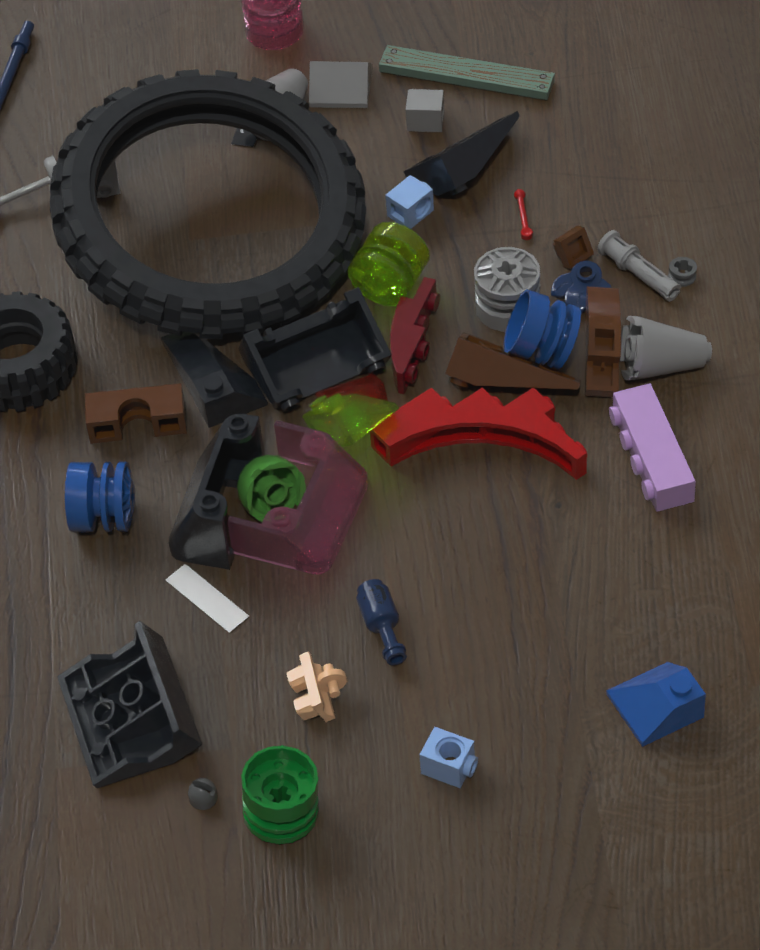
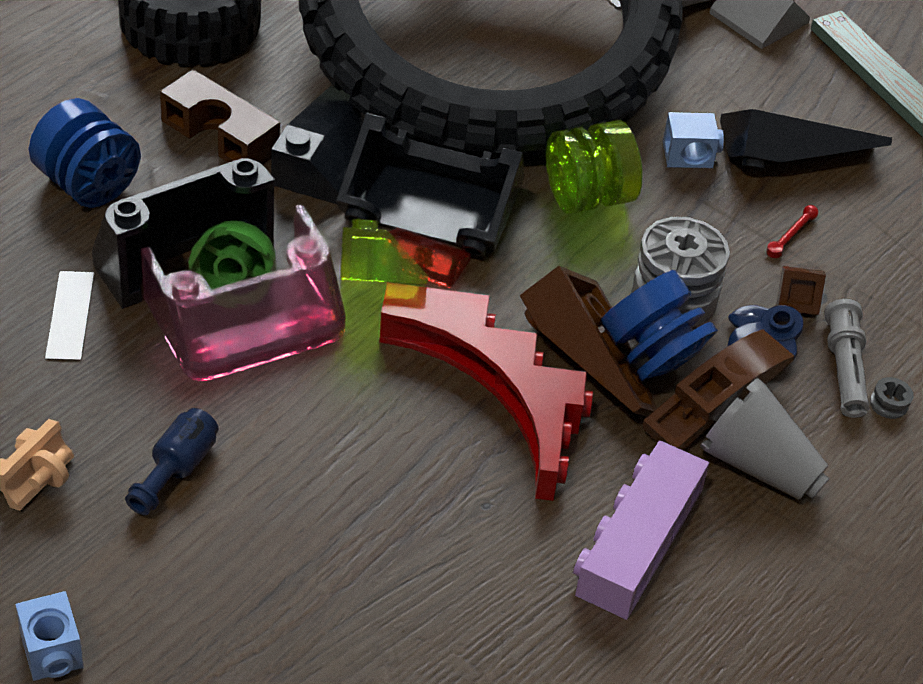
camera: 35 degrees right, 5 degrees down
(409, 333) = (531, 244): dark red slope -> none
(425, 110) = (806, 80): light grey panel -> none

